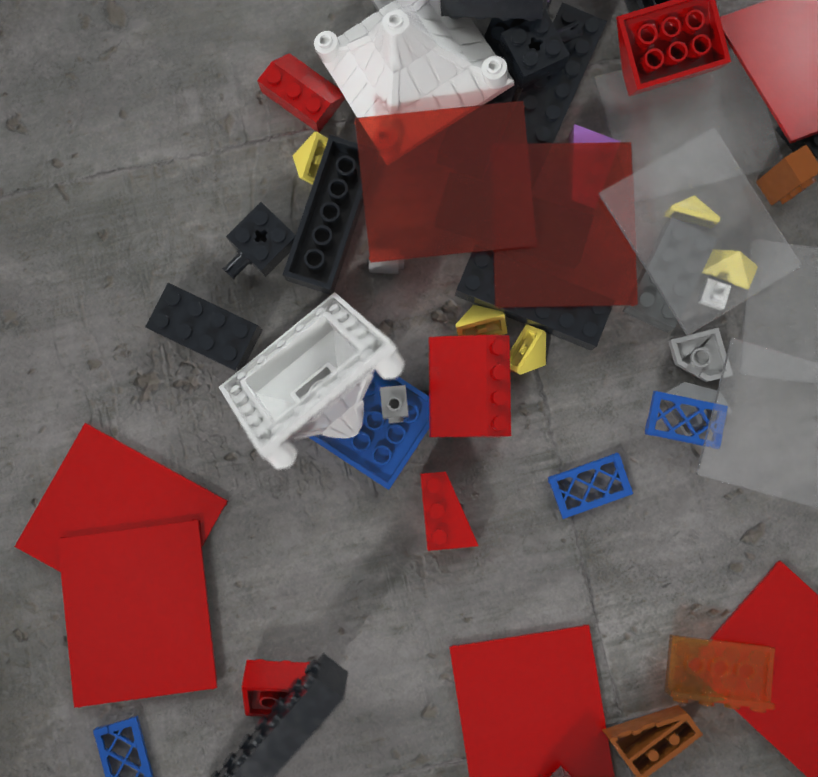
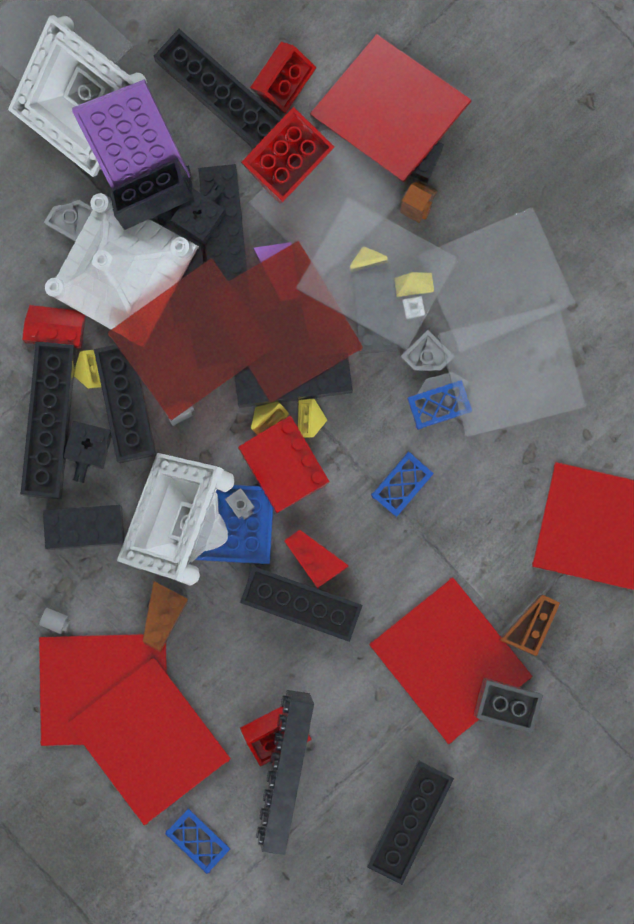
camera: 25 degrees left, 0 degrees up
(110, 414) = (54, 621): none -> light grey brick
(233, 479) = (162, 615): none -> dark orange wedge
(234, 186) = (48, 420): none -> black brick
(399, 559) = (301, 604): none -> black brick
(720, 673) = (553, 557): clear orange bracket -> none

